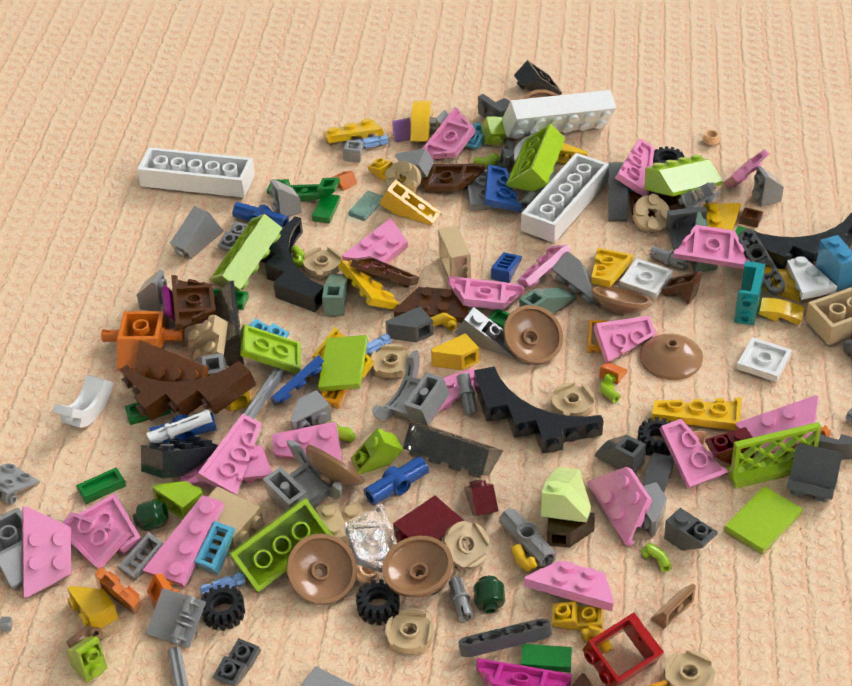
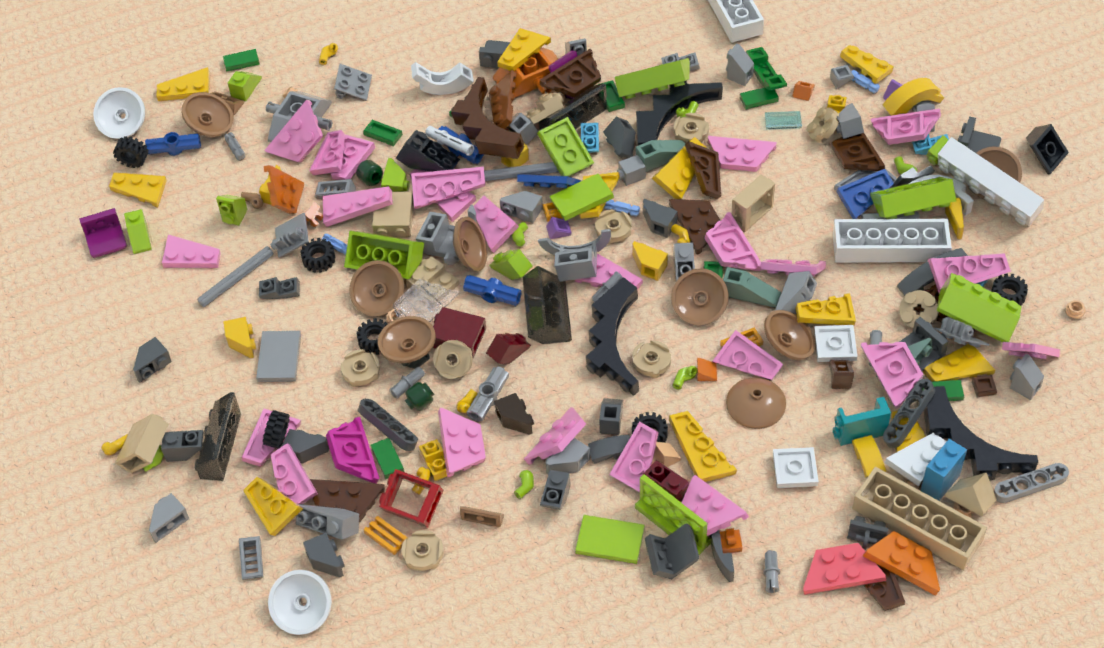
camera: 60 degrees right, 10 degrees up
(94, 350) = (491, 53): none -> dark grey bracket
(119, 321) = (522, 47): none -> yellow wing
(195, 233) = (660, 37): light grey slope -> none
(222, 550) = (355, 221): medium azure slope -> none
(247, 212) = (713, 62): blue piece -> none
(291, 307) = (621, 137): none -> dark grey slope
(336, 316) = (631, 170): none -> light grey brick
(356, 403) = (558, 228): none -> medium lavender slope
(407, 204) = (800, 145): yellow slope -> none
(505, 267) = (768, 250): blue slope -> none
(565, 496) = (534, 394): yellowish green wedge -> none

